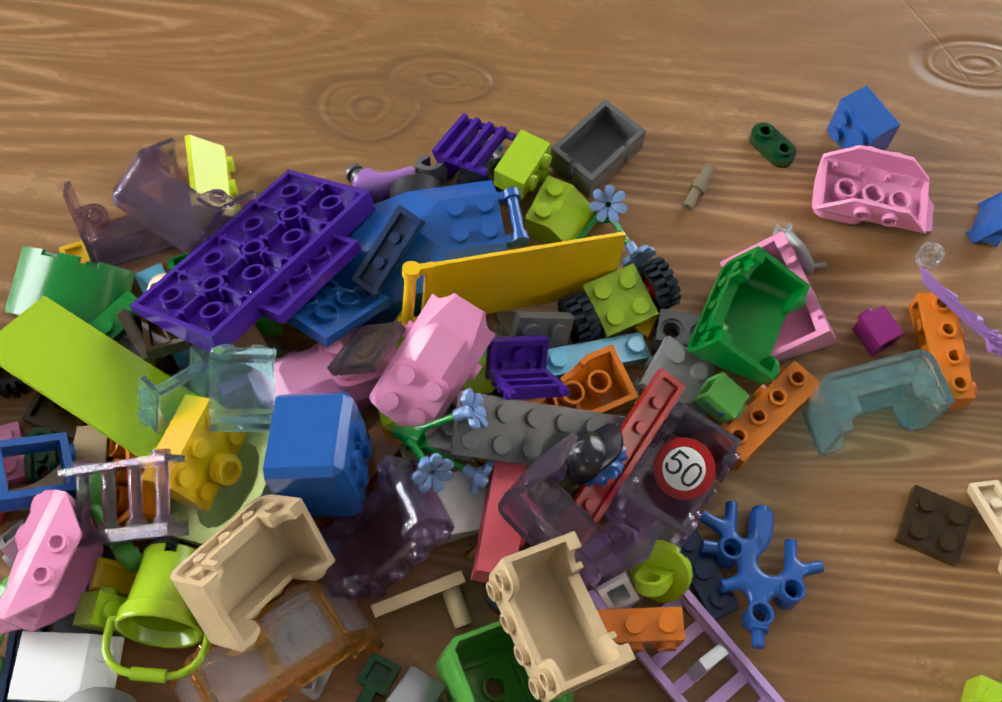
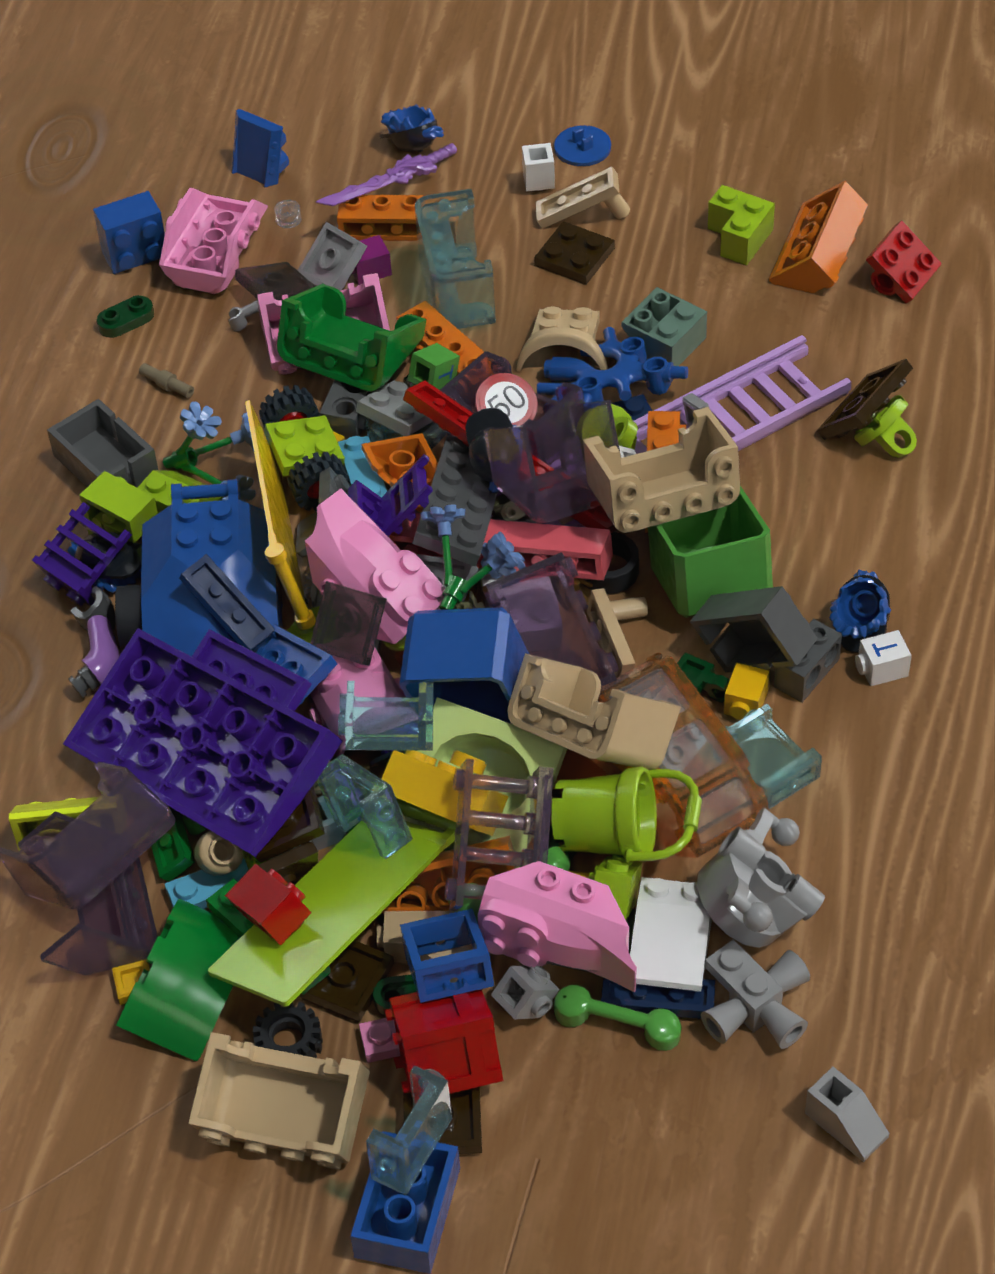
camera: 80 degrees left, 15 degrees down
(83, 326) = (269, 903): none -> red brick
(807, 523) = (568, 328): none -> tan piece
(827, 254) = (275, 278): none -> clear smoke tile
(831, 623) = (667, 326): none -> sand green slope
(862, 295) = (332, 257): none -> light grey plate

